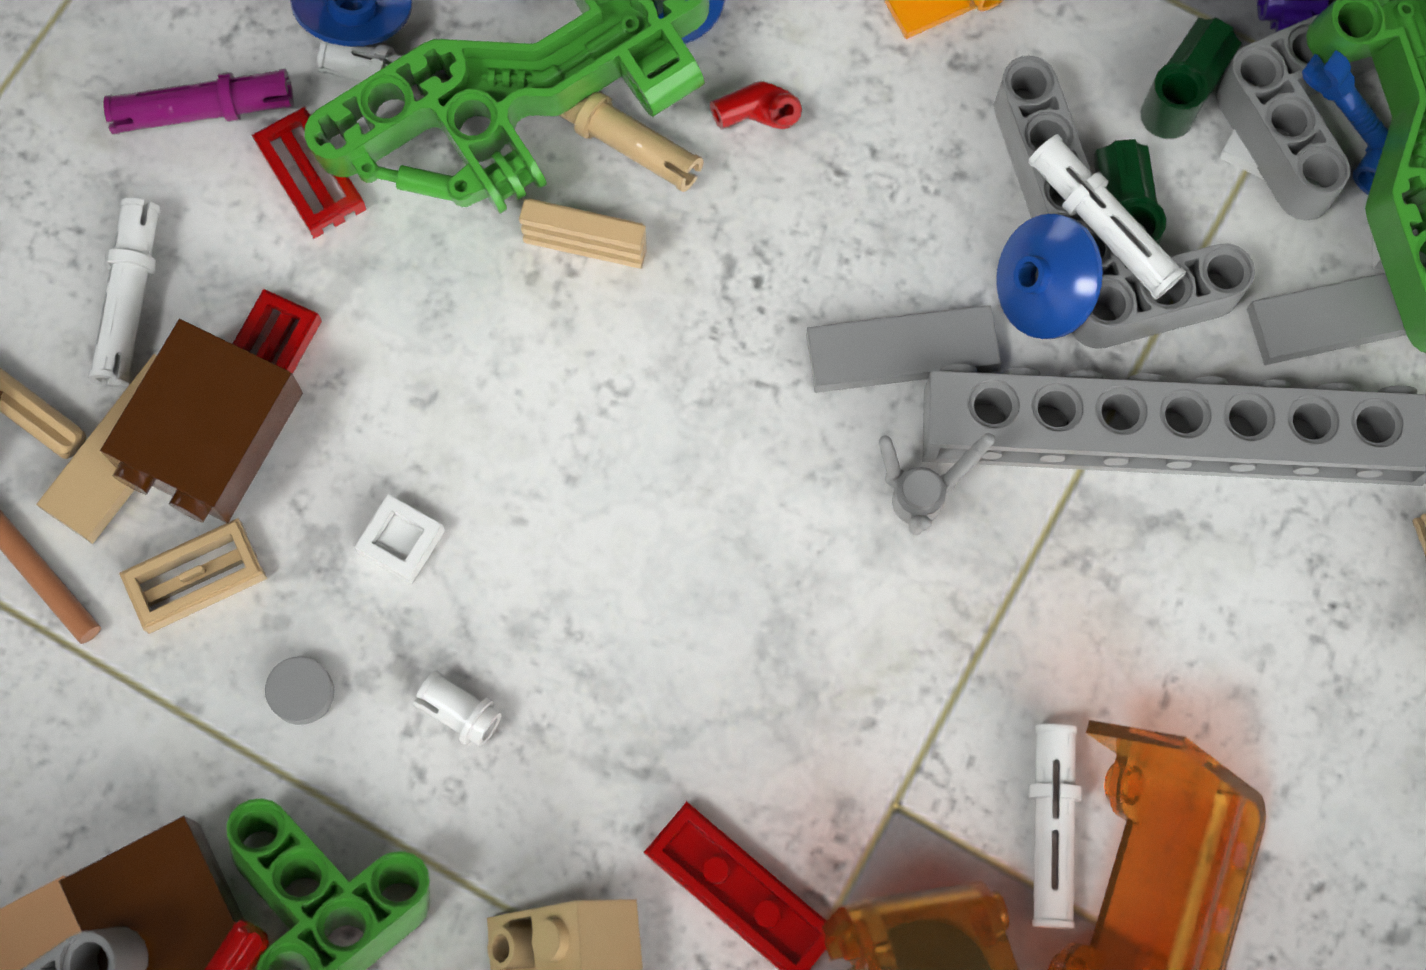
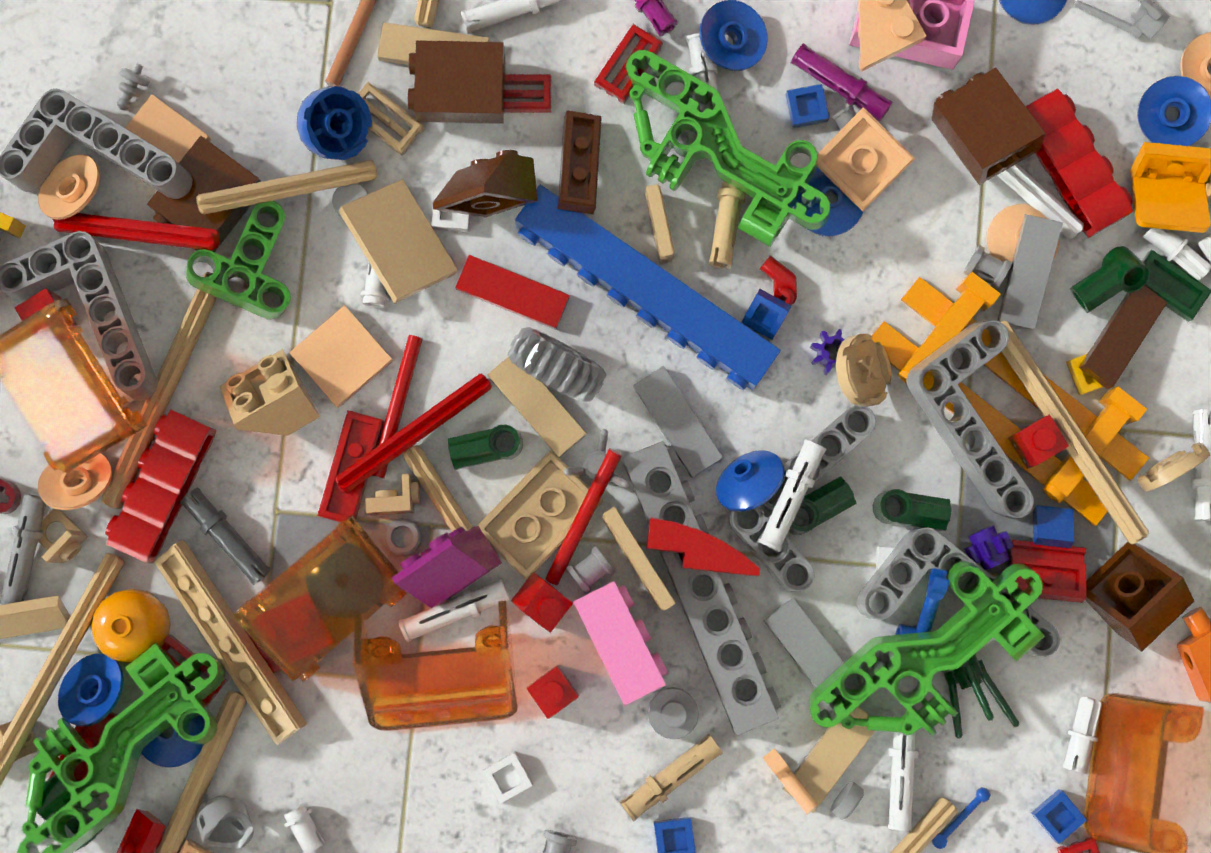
camera: 65 degrees right, 10 degrees up
(159, 650) = (334, 123): none -> blue cylinder
(222, 781) = (286, 187): none -> tan axle
(396, 445) = (490, 186): none -> reddish brown slope
(405, 640) = (398, 240): none -> tan tile
(428, 302) = (579, 162): none -> reddish brown tile
(547, 824) = (341, 356): none -> light nougat tile
(577, 503) = (512, 292): none -> red tile
(671, 298) = (648, 289): none -> blue brick
(674, 771) = (400, 393): none -> red bar
(735, 762) = (413, 433): none -> red axle
(737, 470) = (556, 364): none -> light grey gear
(776, 547) = (537, 407): none -> tan tile
(799, 145) = (766, 314): none -> blue tile
(808, 659) = (481, 447): none -> dark green piece
(830, 851) = (387, 501): none -> tan bracket
(882, 761) = (436, 488): none -> tan axle
(894, 858) = (402, 537): none -> light grey tile
(901, 79) = (823, 355): none -> dark purple gear
(953, 42) = (863, 370): none -> tan tile
(955, 625) = (535, 515): none -> tan tile
(988, 793) = (447, 566): none -> magenta slope
(995, 549) = (583, 516): none -> red bar
(1081, 580) = (590, 570): none -> light grey bush
(1104, 491) = (637, 559): none -> tan tile
(1105, 674) = (541, 602): none -> red brick
(1130, 387) = (698, 548): none -> red slope
(1226, 576) = (621, 642): none -> bright pink brick
(1256, 724) = (552, 692): none -> red brick
(1362, 556) = (673, 713): none -> light grey piece
(1363, 866) = (507, 777): none -> white tile

